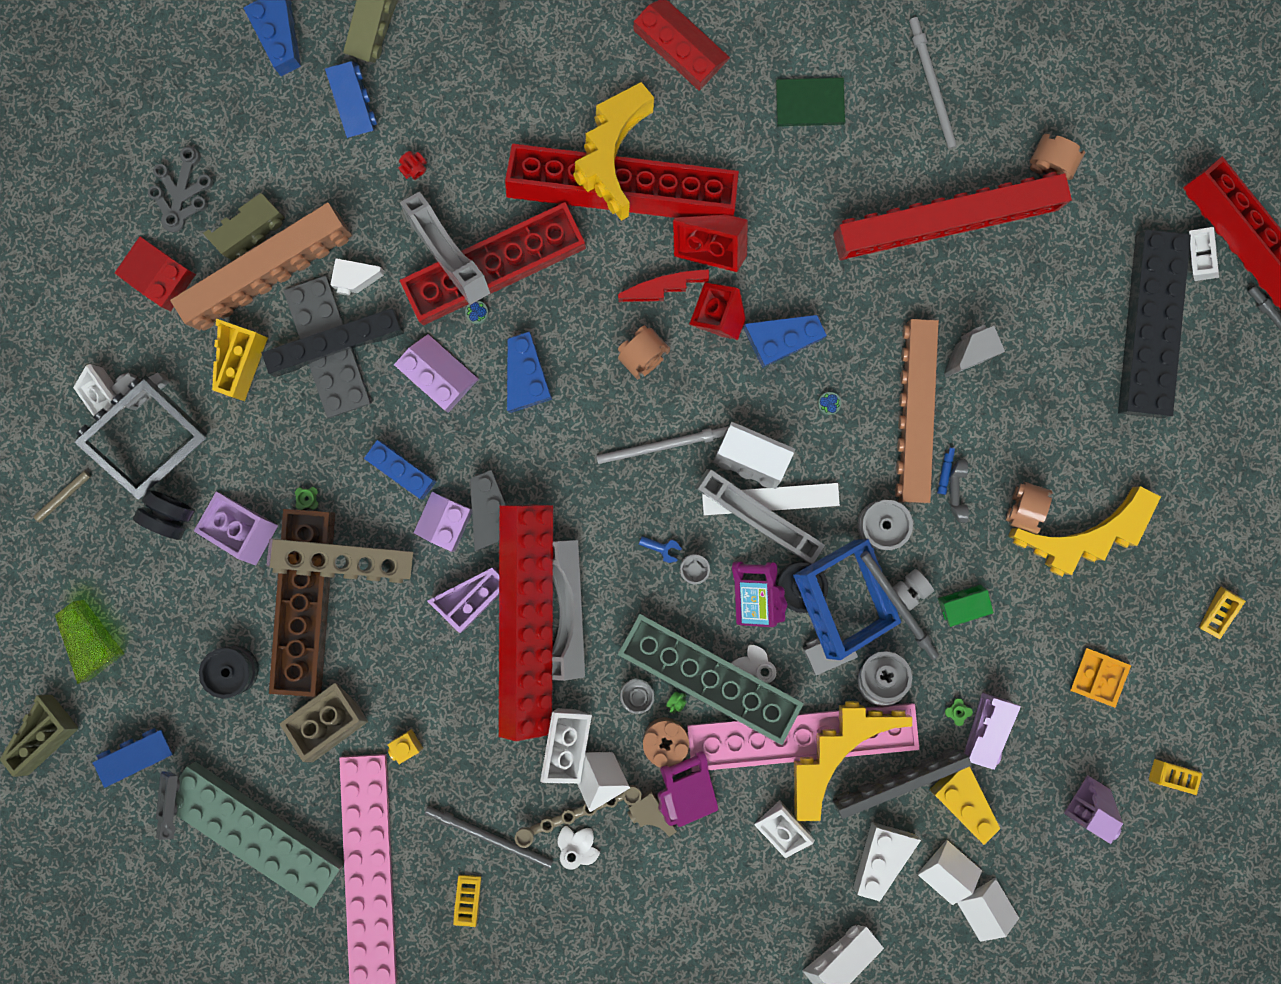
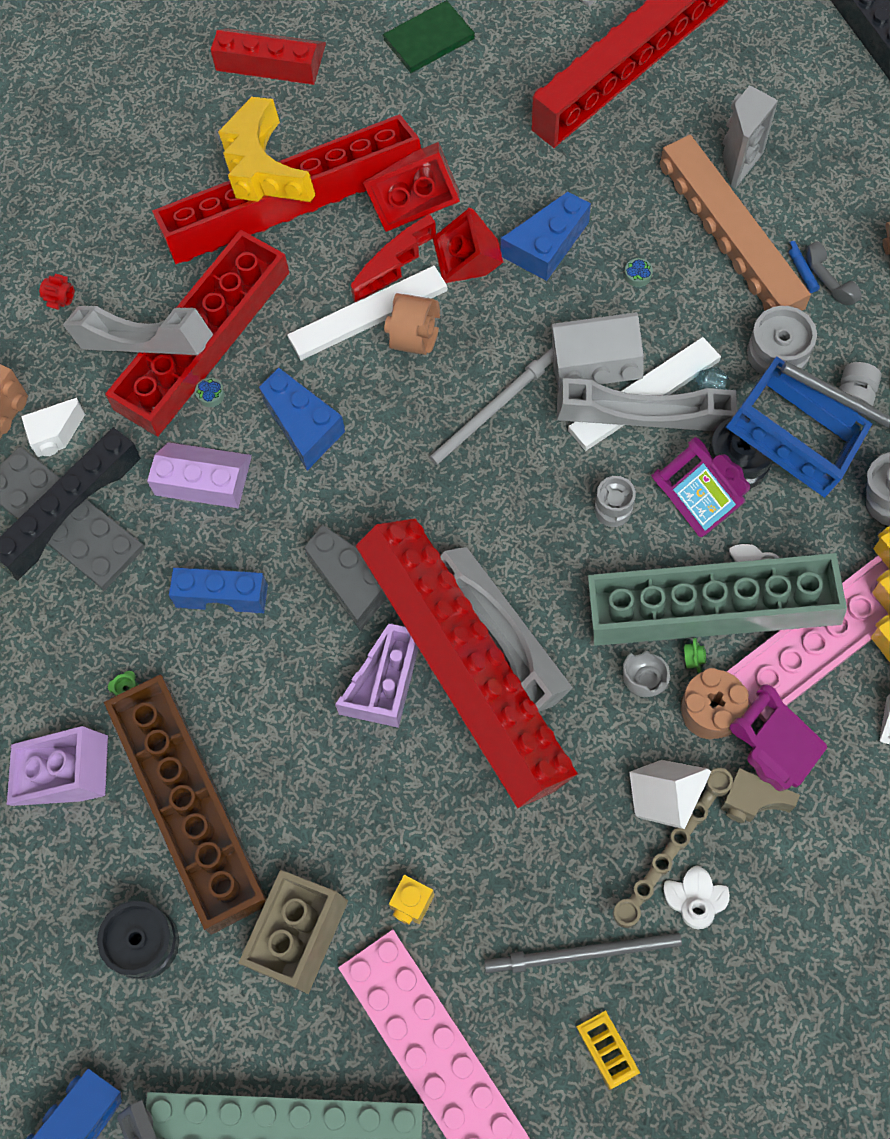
camera: 30 degrees left, 20 degrees down
(279, 549) = (186, 711): dark tan brick -> none
(443, 522) = (301, 618): lavender slope -> none
(566, 746) = (605, 774): white slope -> none
(621, 316) = (363, 313): none -> white tile
(662, 548) = (565, 507): blue bar -> none
(817, 524) = (711, 378): none -> clear light blue piece
(818, 660) = (814, 512): light grey arch -> none

